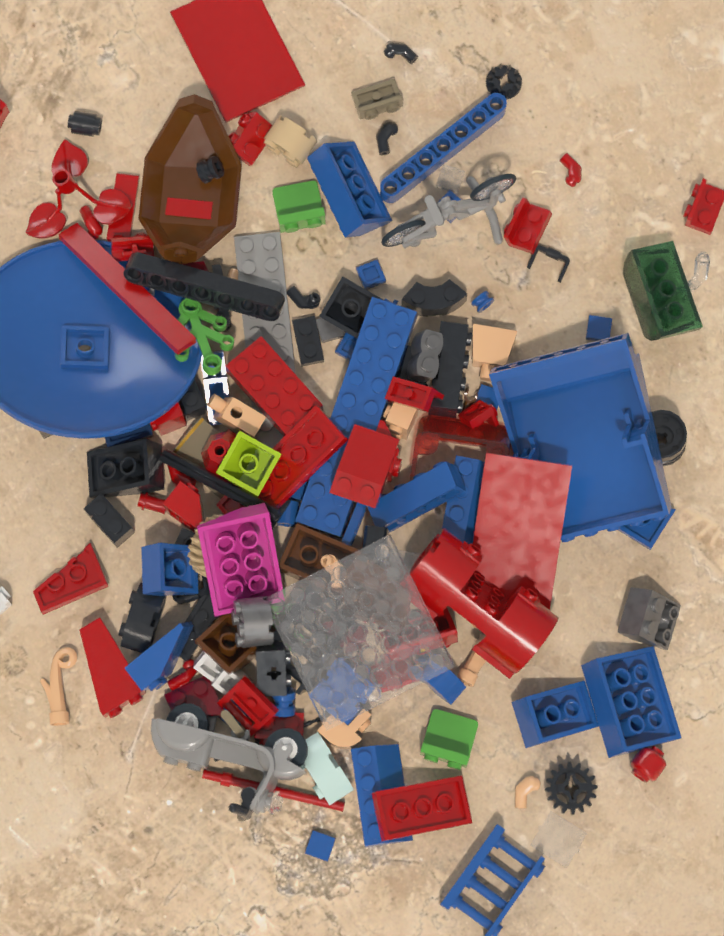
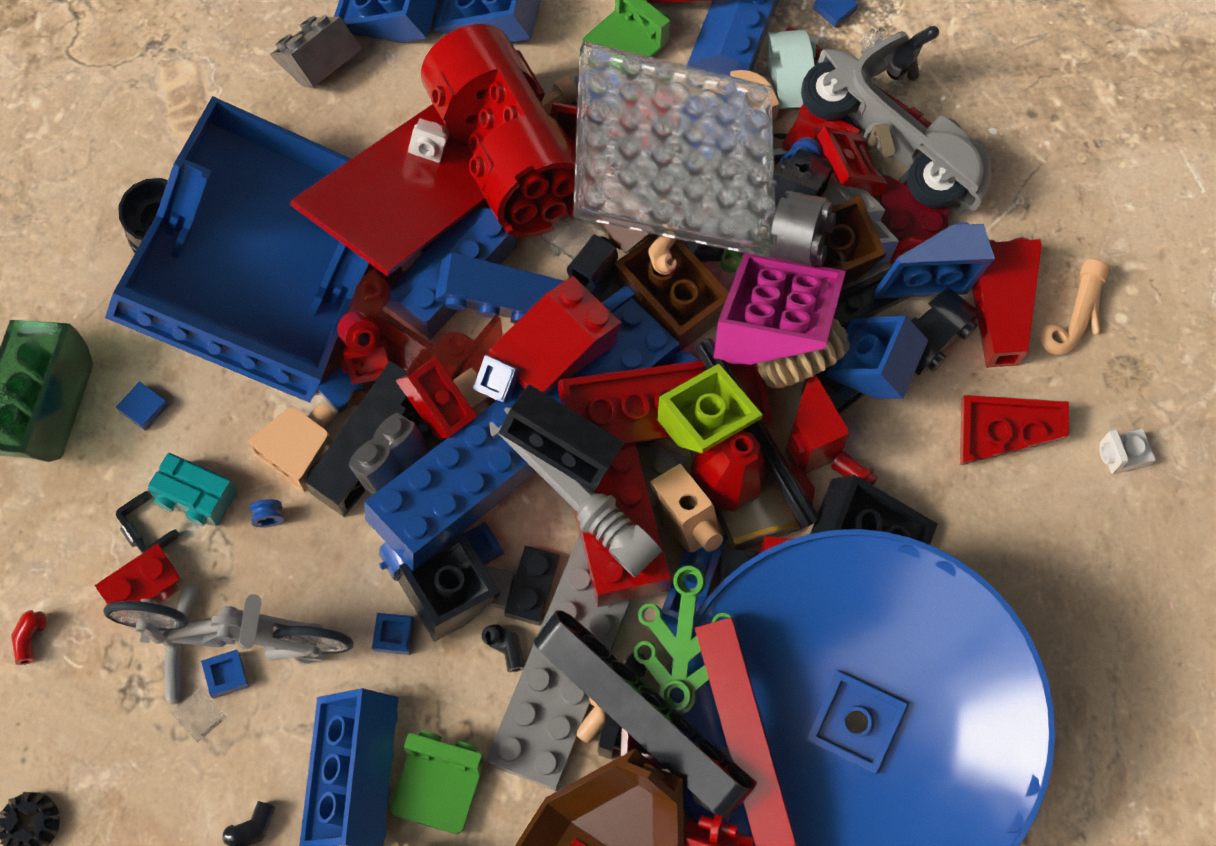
camera: 155 degrees left, 10 degrees down
(109, 520) = (926, 474): black brick -> none
(253, 362) = (596, 514): none -> light grey piece
(323, 398) = (561, 437): none -> black brick
(384, 423) = (496, 379): none -> tile
(434, 300) = (328, 544): black brick -> none
(446, 138) = (160, 758): blue beam -> none
(488, 419) = (358, 332): none -> red brick
(527, 575) = (428, 140): none -> white bracket
(533, 292) = (192, 490): none -> teal brick

